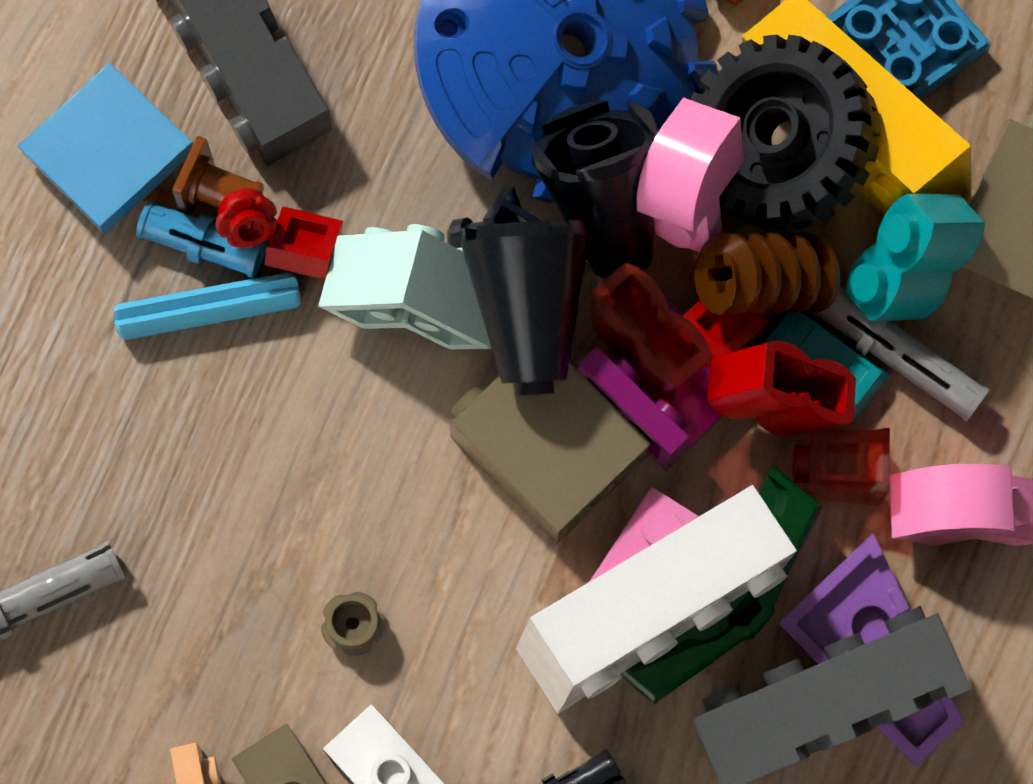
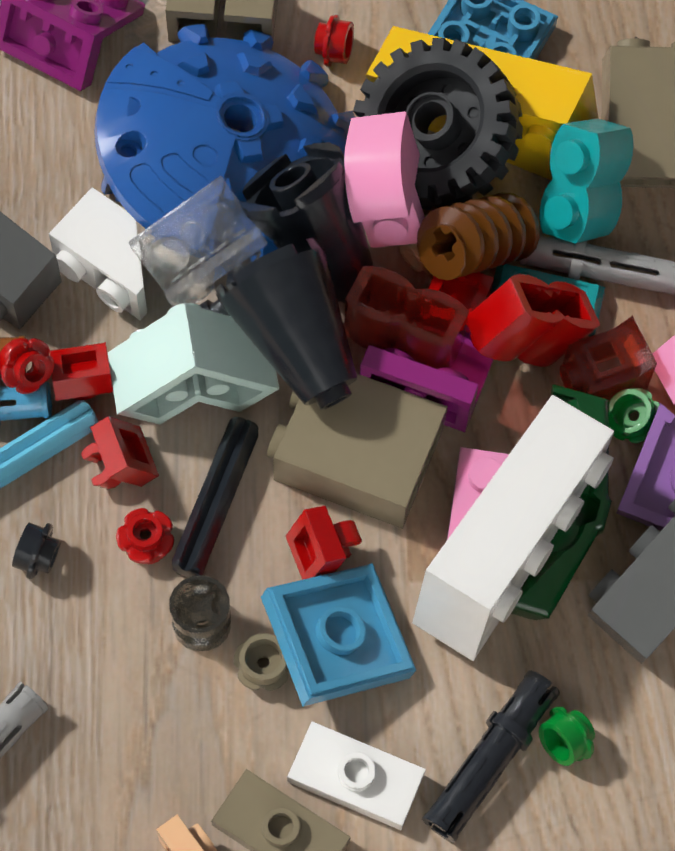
camera: 25 degrees left, 10 degrees down
(181, 412) = (36, 550): none -> black plate
(300, 459) = (148, 550): none -> red plate
(306, 537) = (199, 601): none -> clear smoke wheel
(307, 348) = (123, 454): none -> red tile
(382, 432) = (215, 497): none -> black axle
(386, 118) = (95, 247): none -> white slope
(436, 628) = (337, 634): none -> dark azure tile
(460, 531) = (319, 544): none -> red tile
(473, 162) = (198, 243): none -> clear bracket
(833, 521) = (623, 405): none -> green plate

